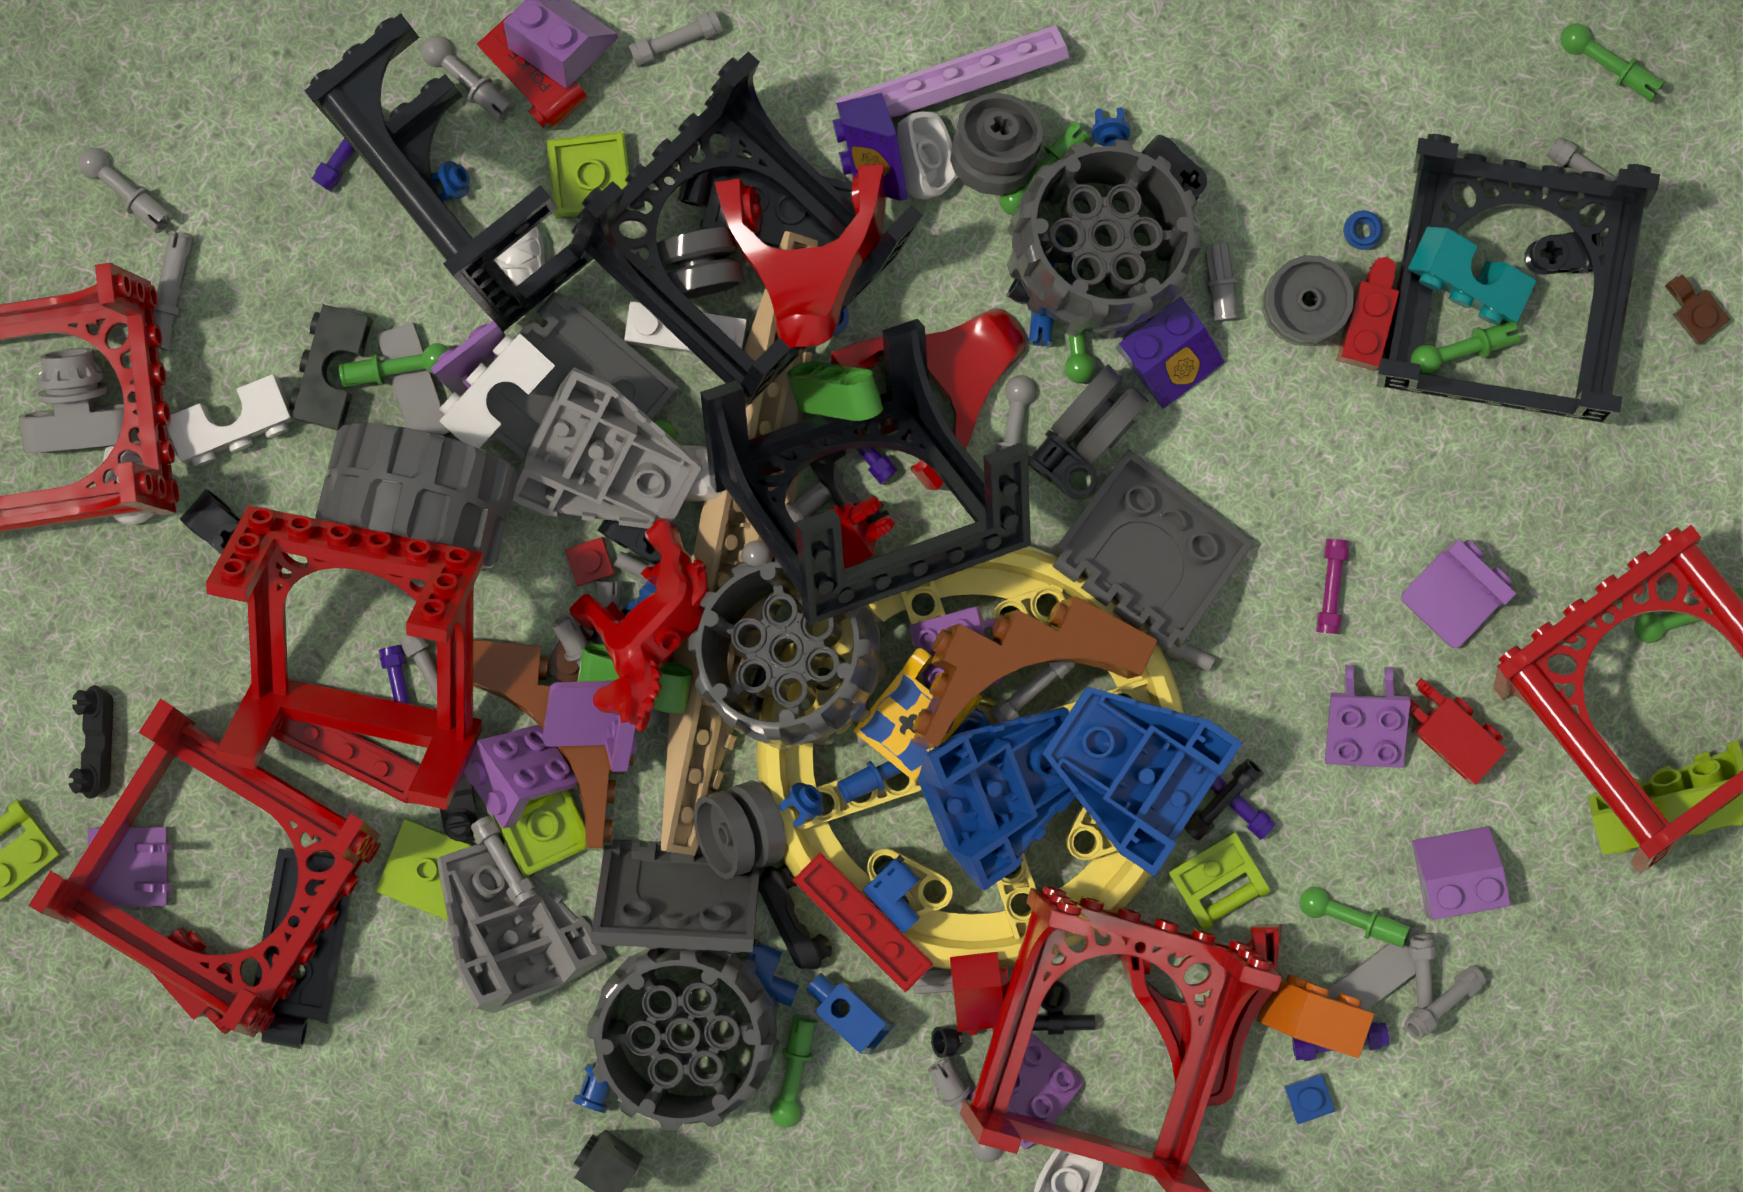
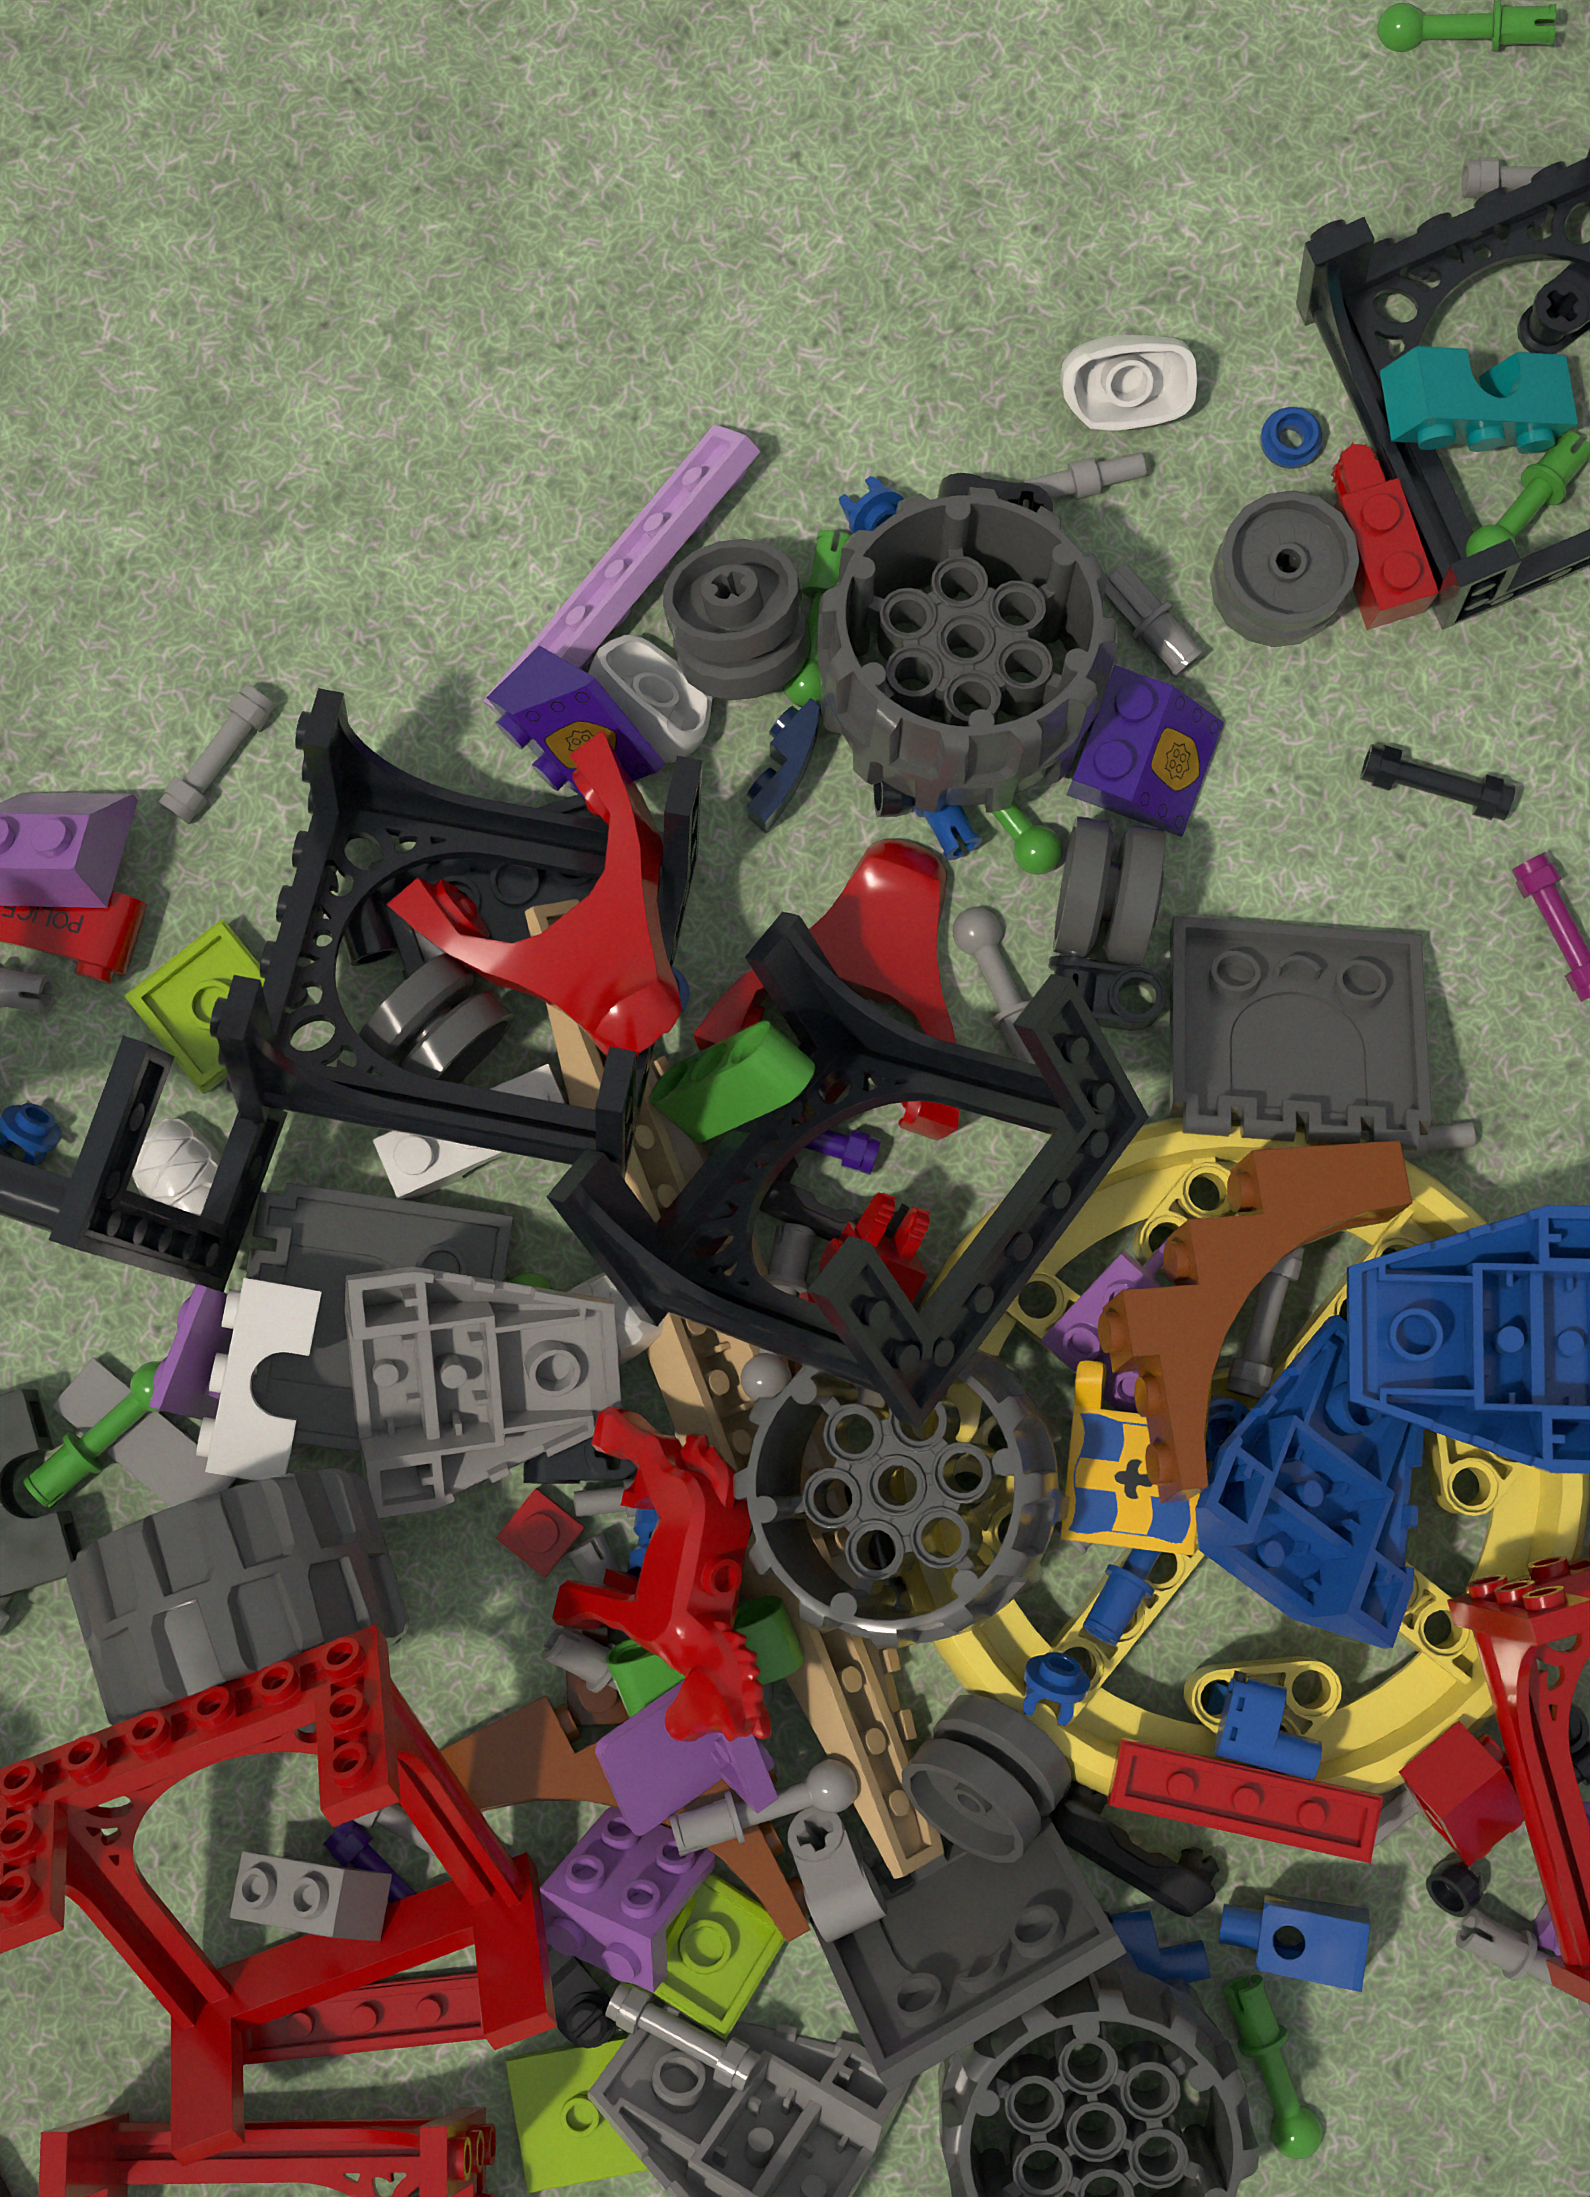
camera: 30 degrees left, 5 degrees down
(358, 671) = (310, 1896): none -> light grey brick
(632, 829) = (834, 1877): none -> light grey piece
(656, 783) = (828, 1787): none -> light grey pin
(985, 230) = (792, 749): none -> dark blue slope
(1238, 182) = (1087, 477): none -> light grey bar
(1292, 144) = (1129, 381): none -> white piece
(1339, 492) = (1489, 797): none -> black bar

